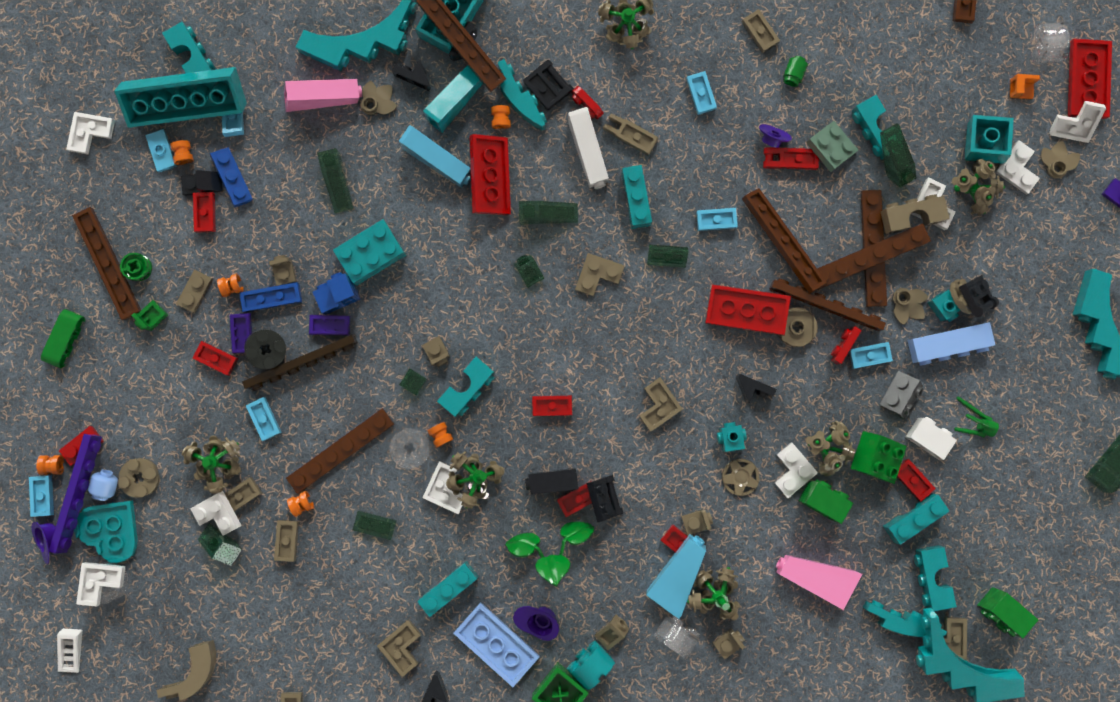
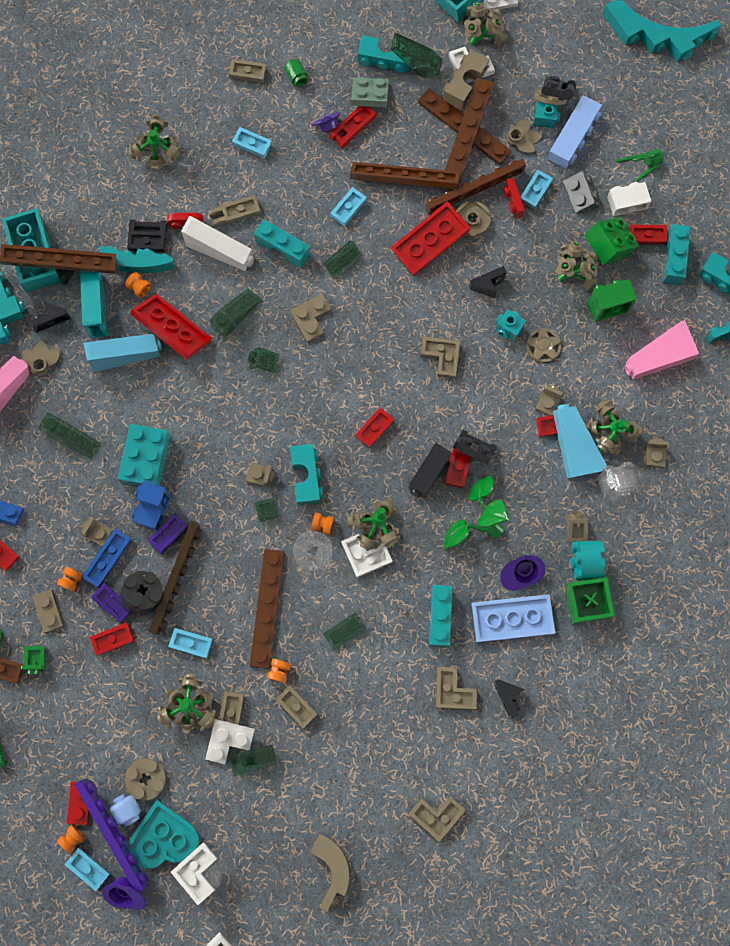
camera: 50 degrees left, 10 degrees down
(799, 470) = (572, 301): white plate -> none

